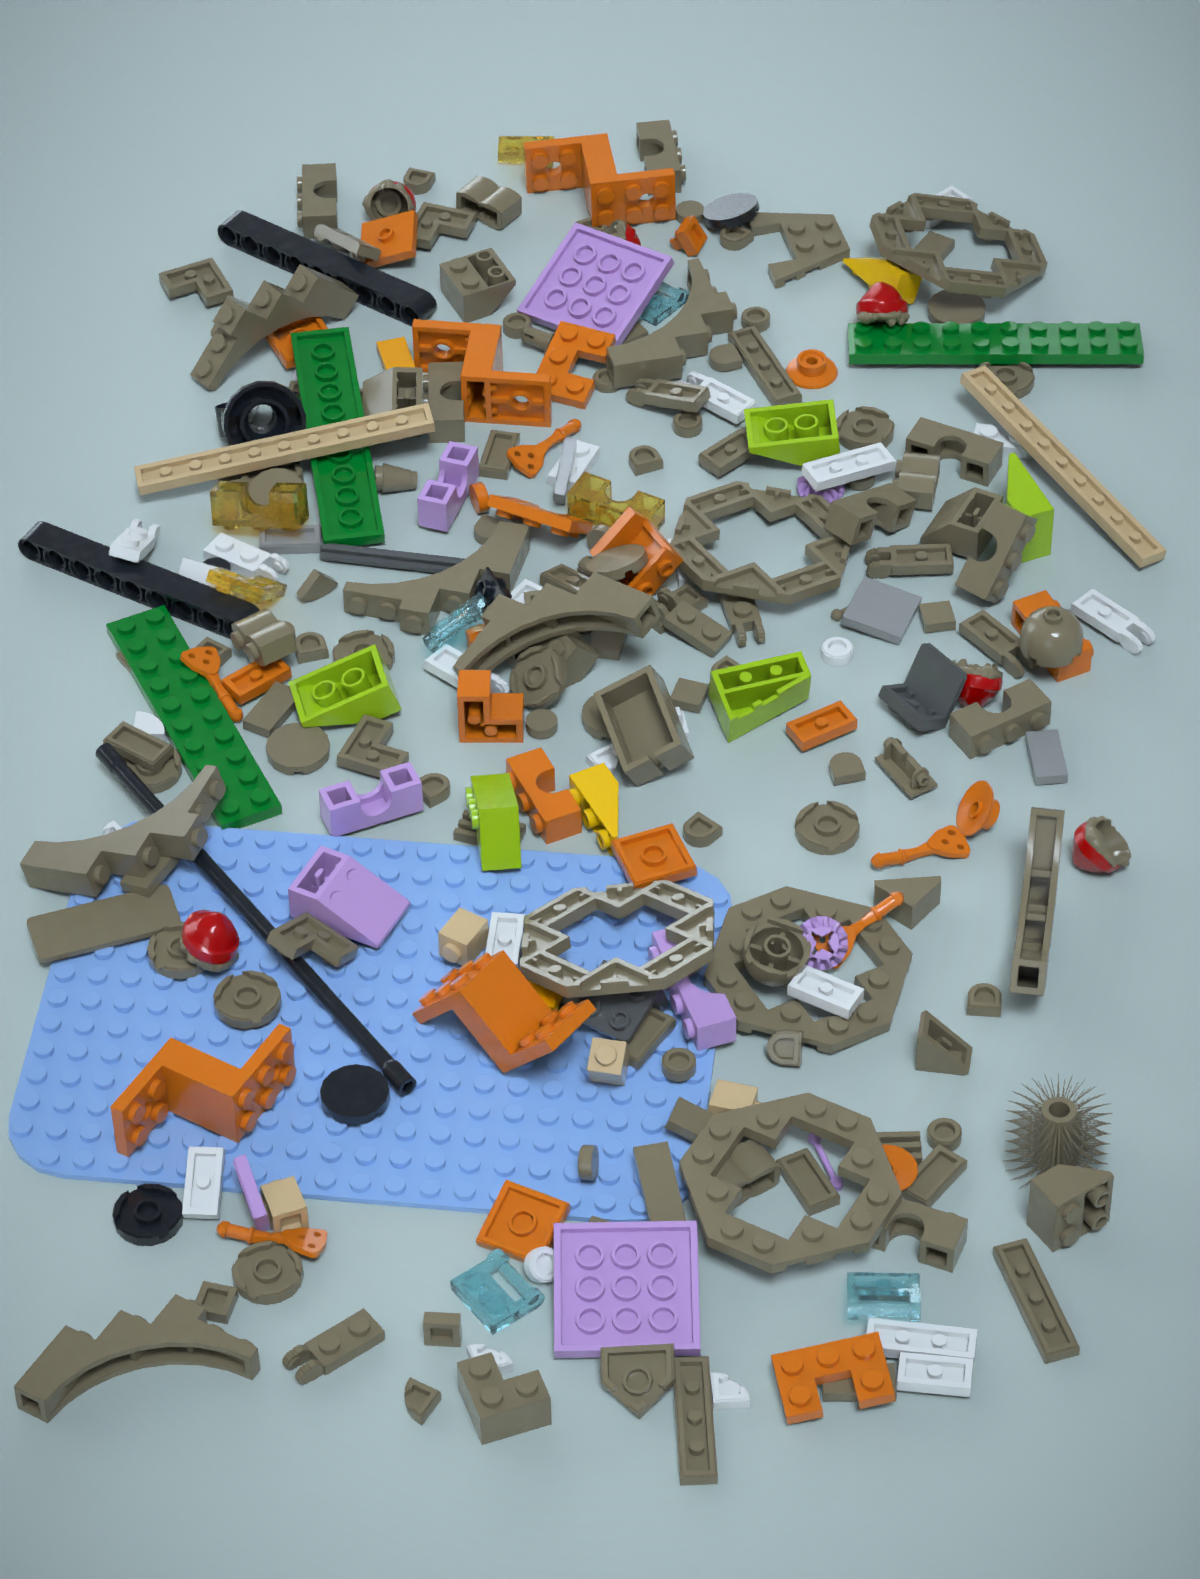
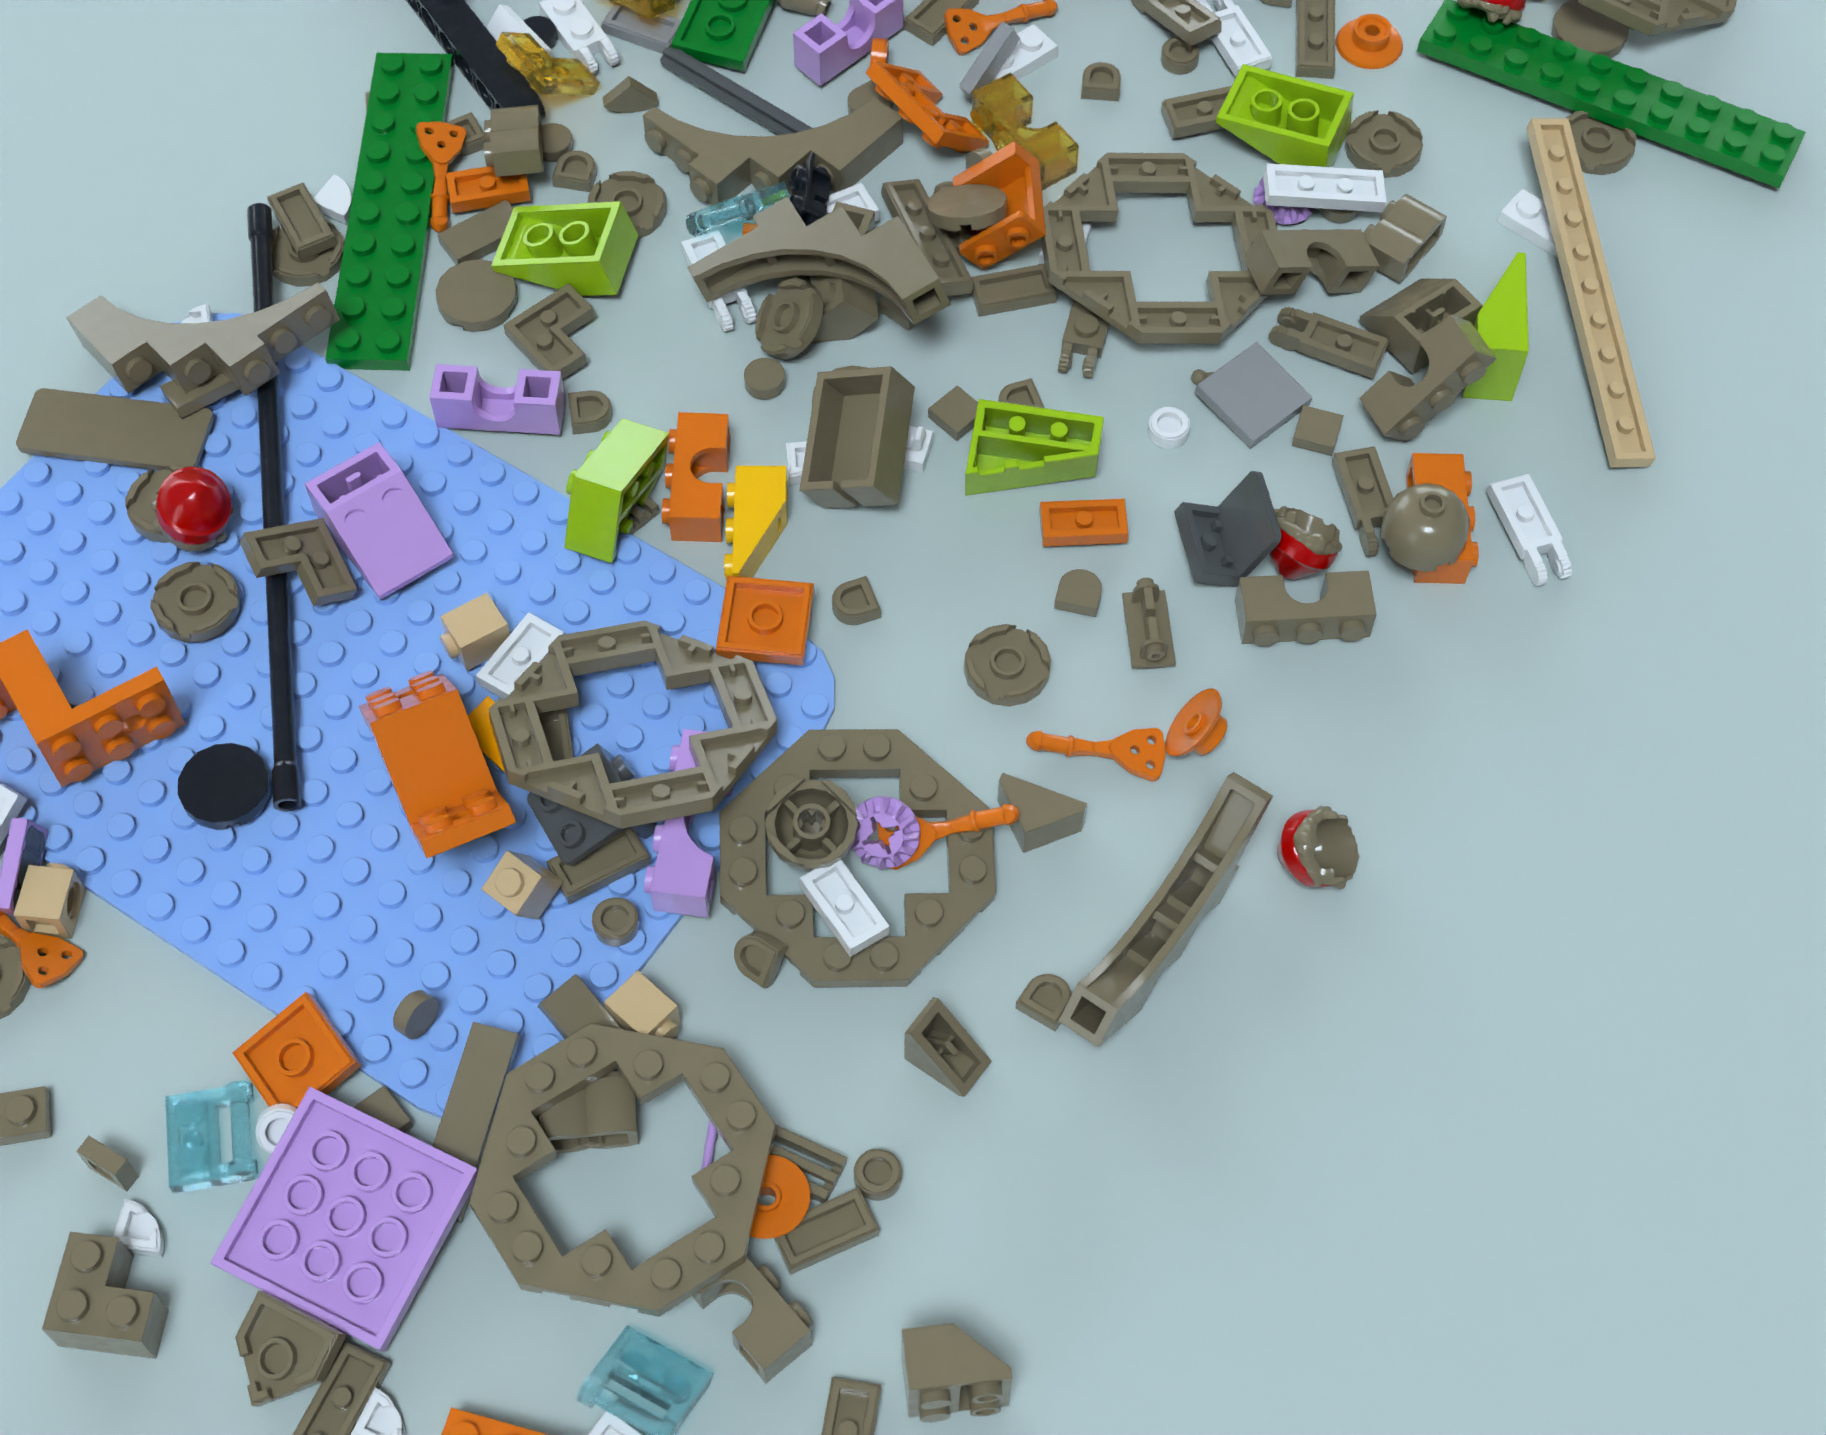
camera: 25 degrees right, 15 degrees up
(420, 1400) = (27, 1248): dark tan tile -> none
(487, 715) = (701, 342): orange brick -> none
(691, 624) = (1014, 320): dark tan hinge -> none
(808, 1182) = (670, 1161): dark tan tile -> none
(978, 454) = (1495, 229): dark tan arch -> none
(1046, 757) = (1334, 684): light grey tile -> none
(1056, 1131) = (995, 1264): dark tan piece -> none

